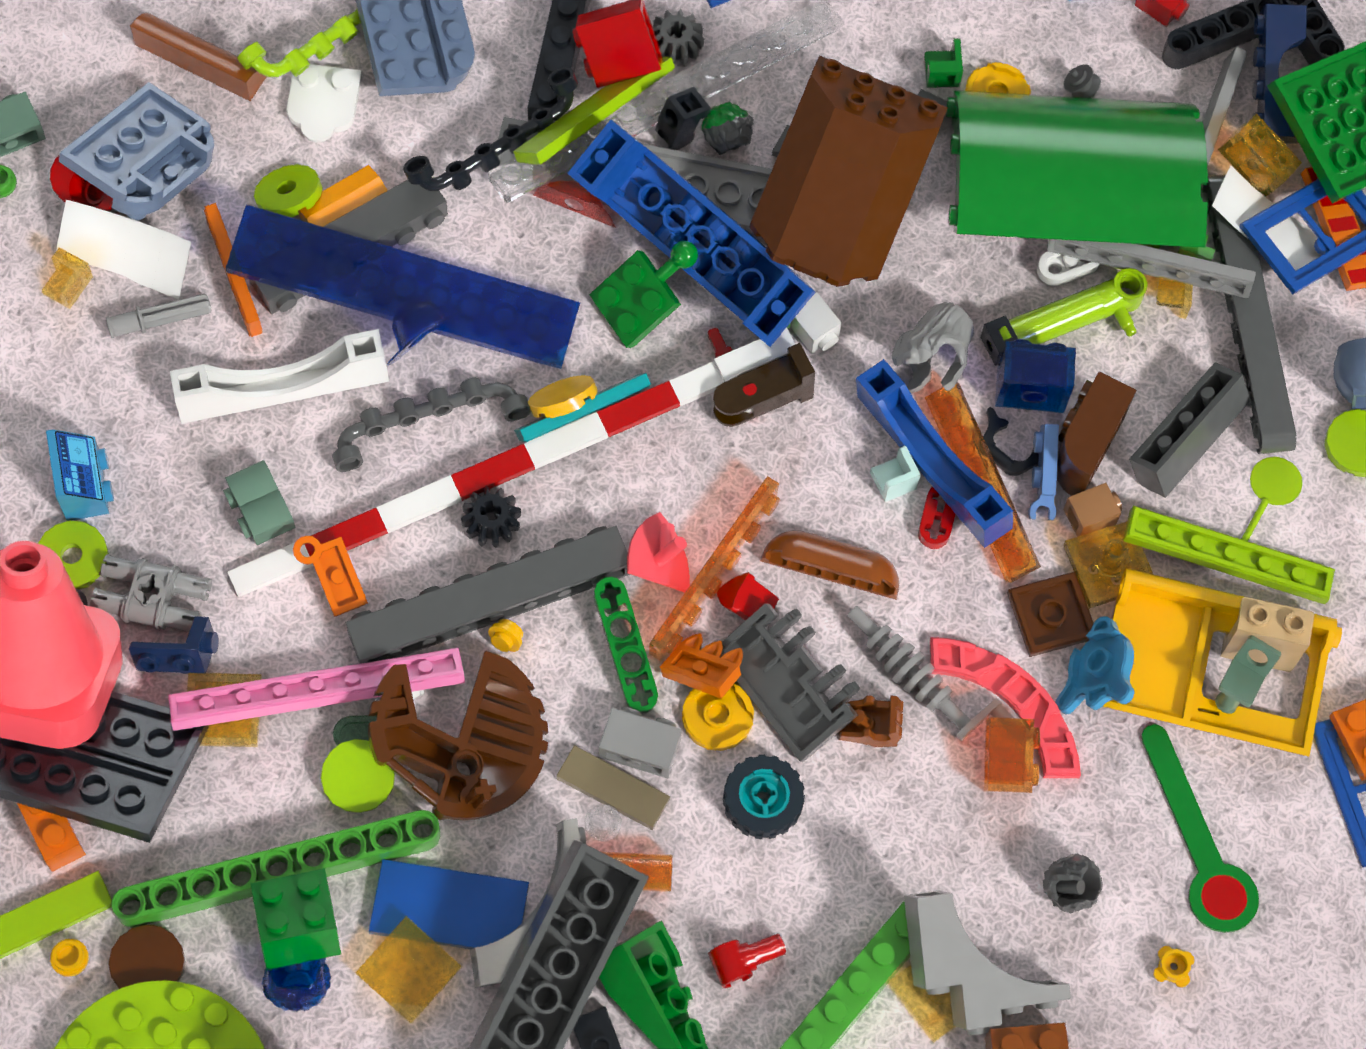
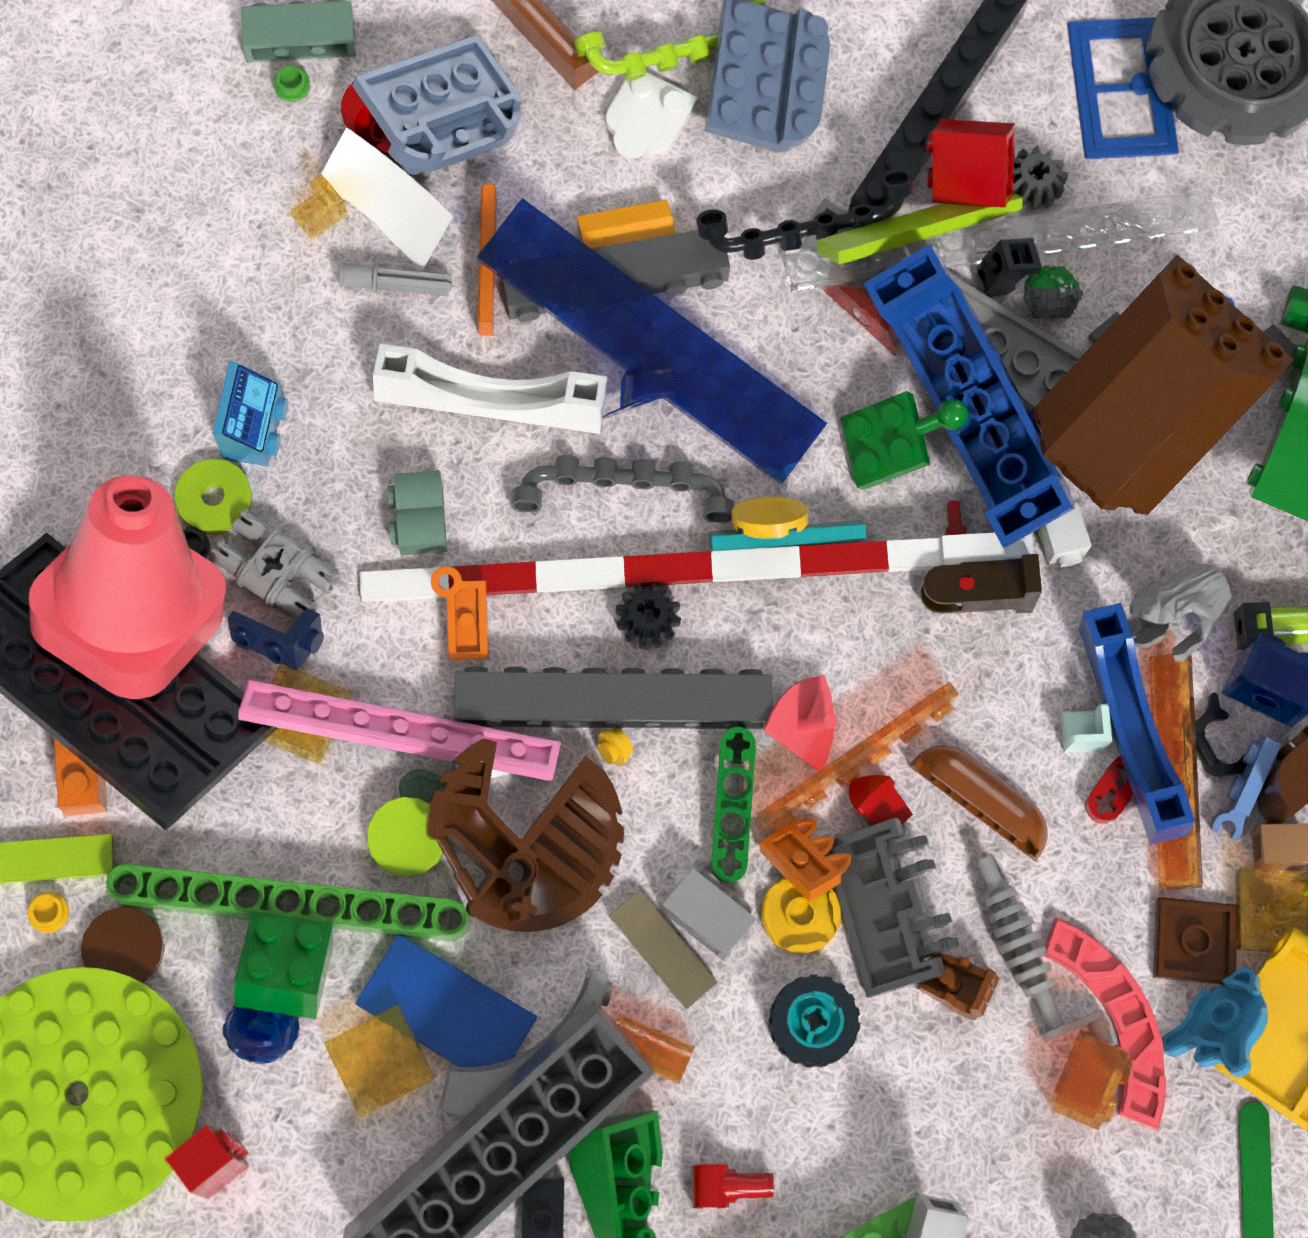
camera: 20 degrees right, 5 degrees up
(272, 188) = (588, 186): lime tile -> none

